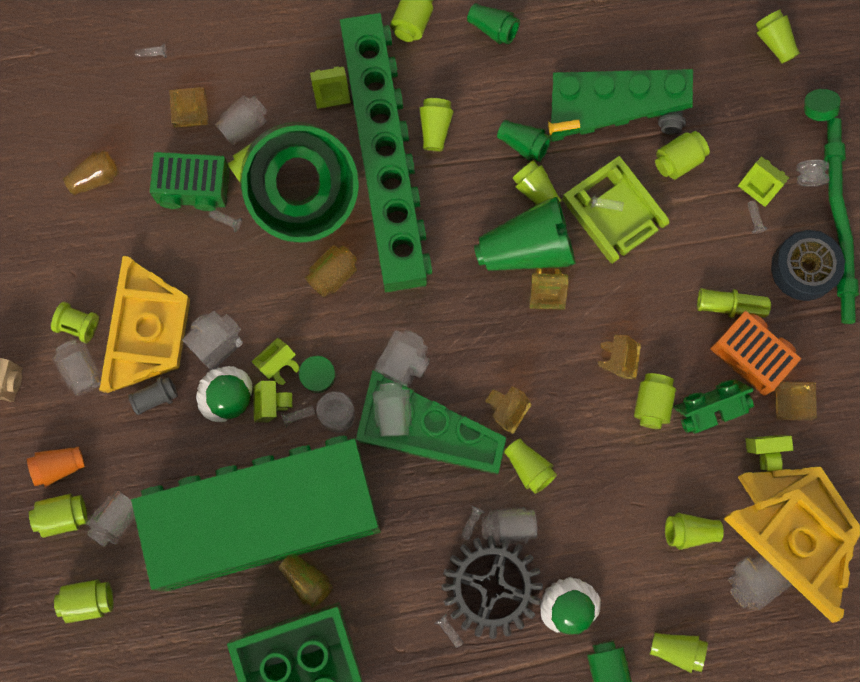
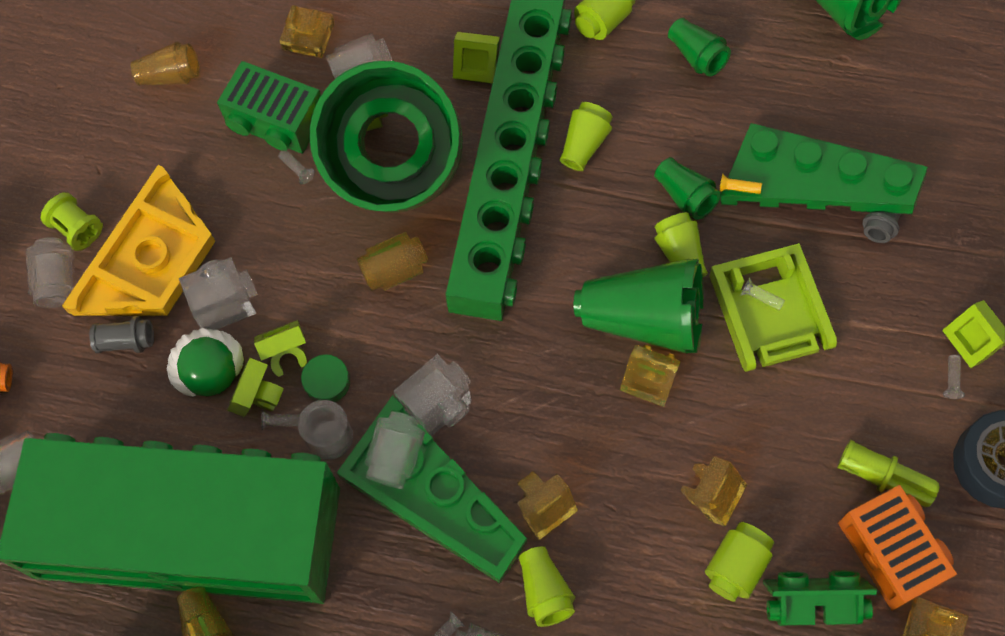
camera: 25 degrees right, 10 degrees down
(682, 155) = (880, 267): lime brick -> none

